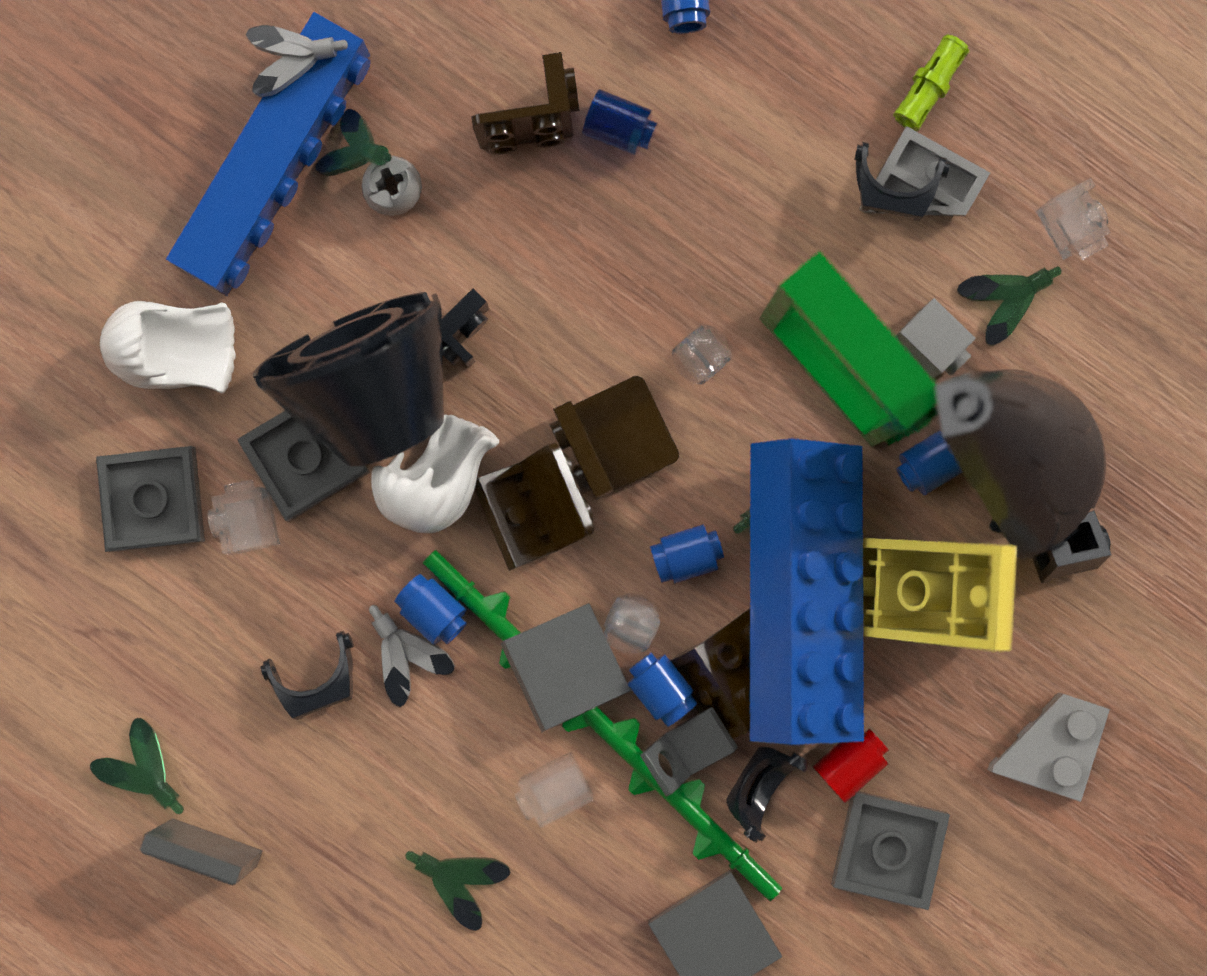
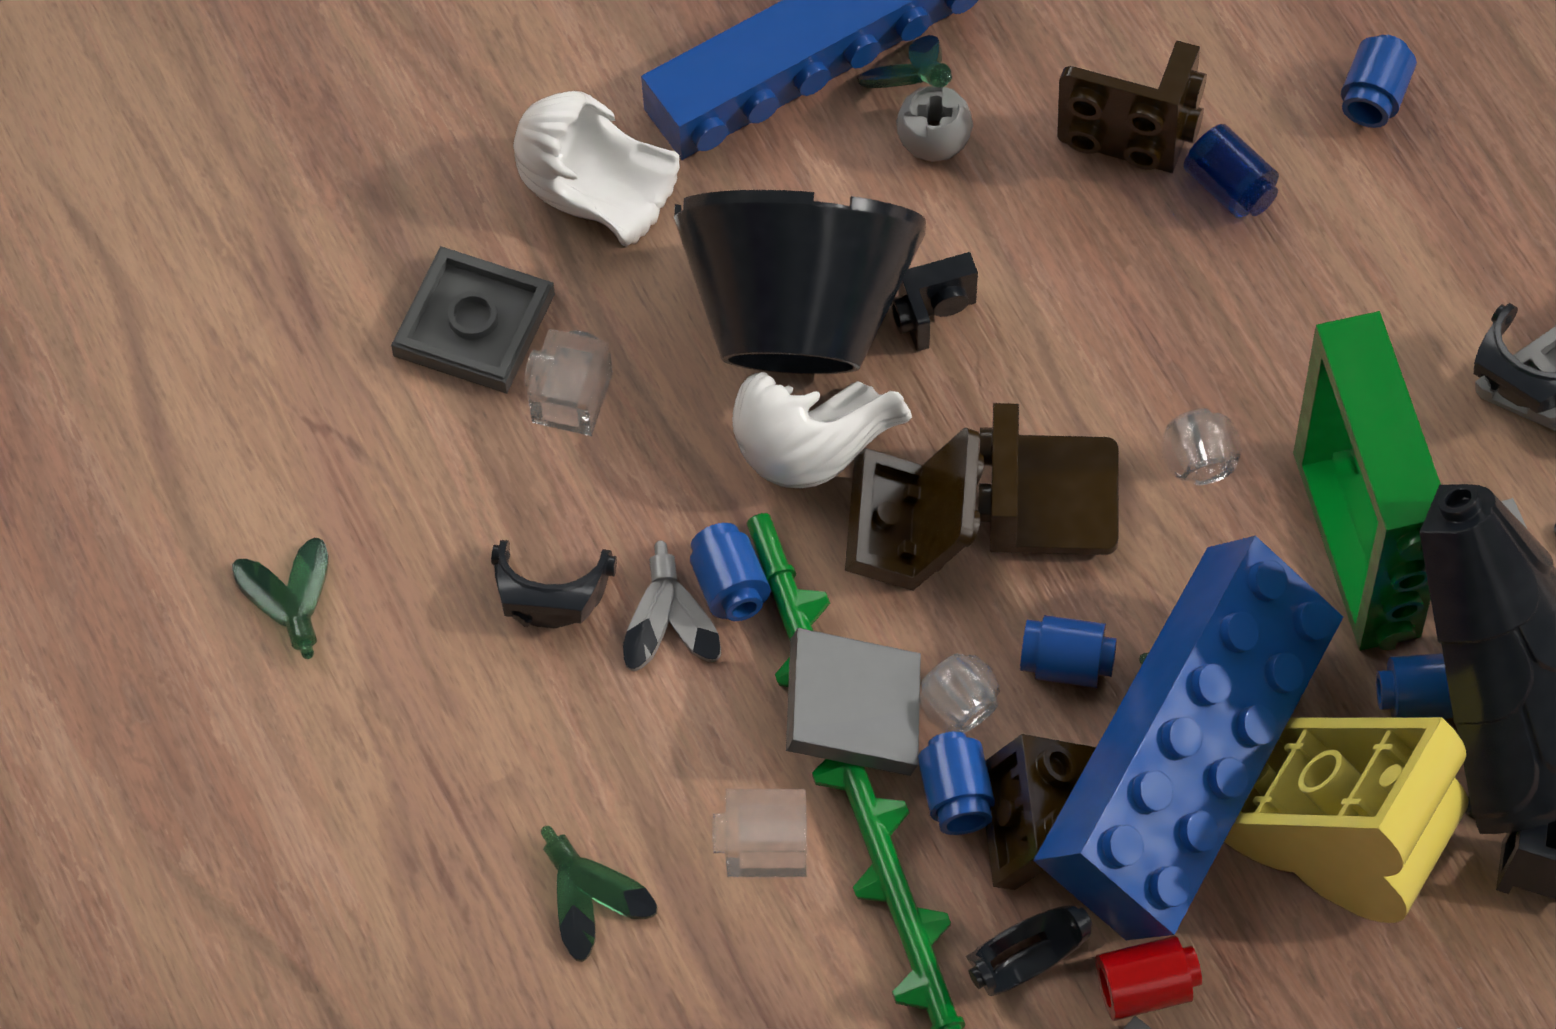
camera: 30 degrees right, 25 degrees down
(201, 851) = (316, 687): dark grey tile -> none
(296, 465) = (667, 358): dark grey tile -> none
(689, 749) = (954, 867): dark grey bracket -> none

